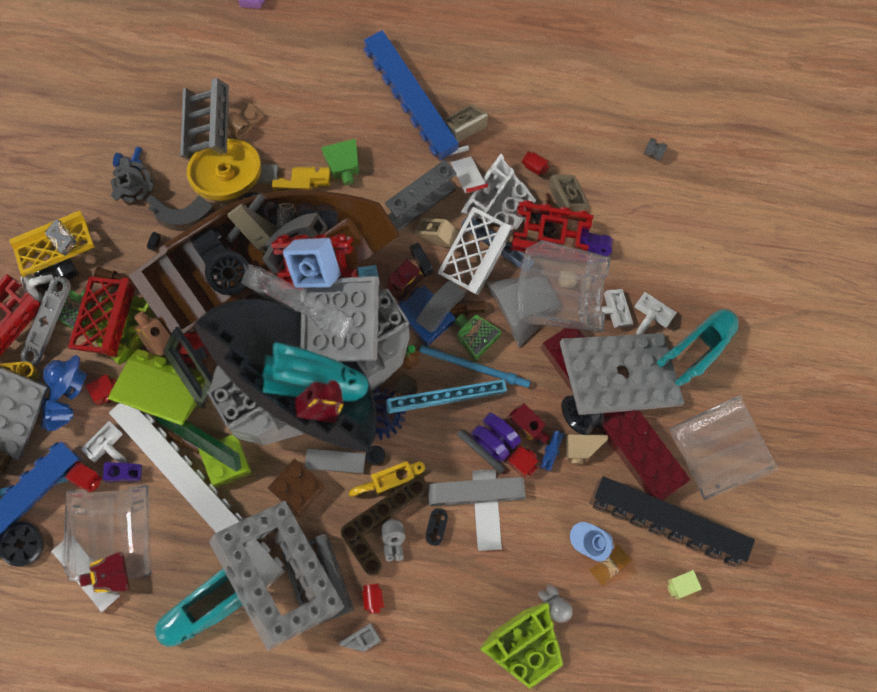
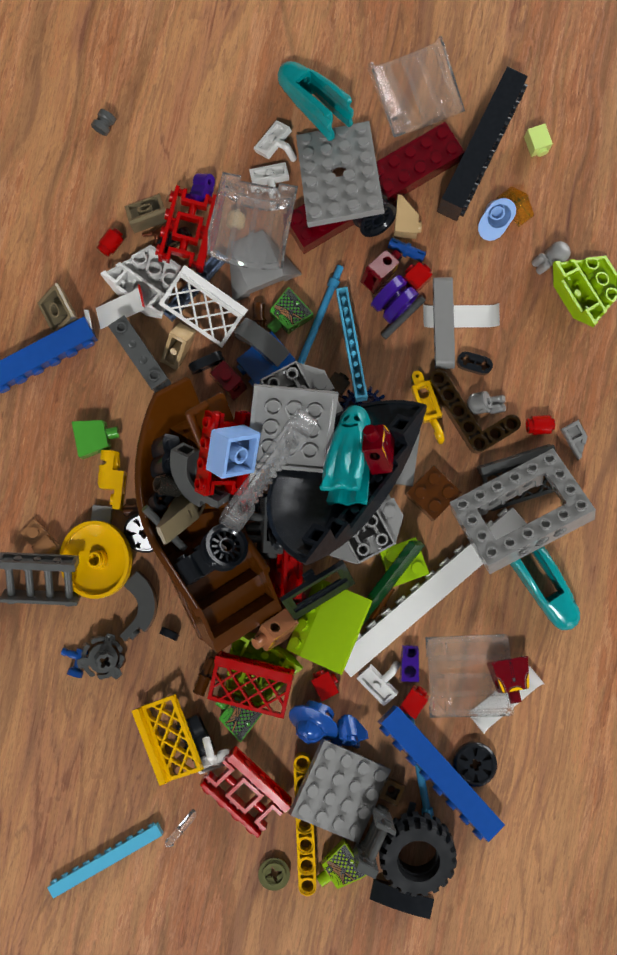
camera: 85 degrees left, 10 degrees up
(50, 309) = (240, 737): light grey piece -> none
(60, 237) = (163, 729): tile -> none

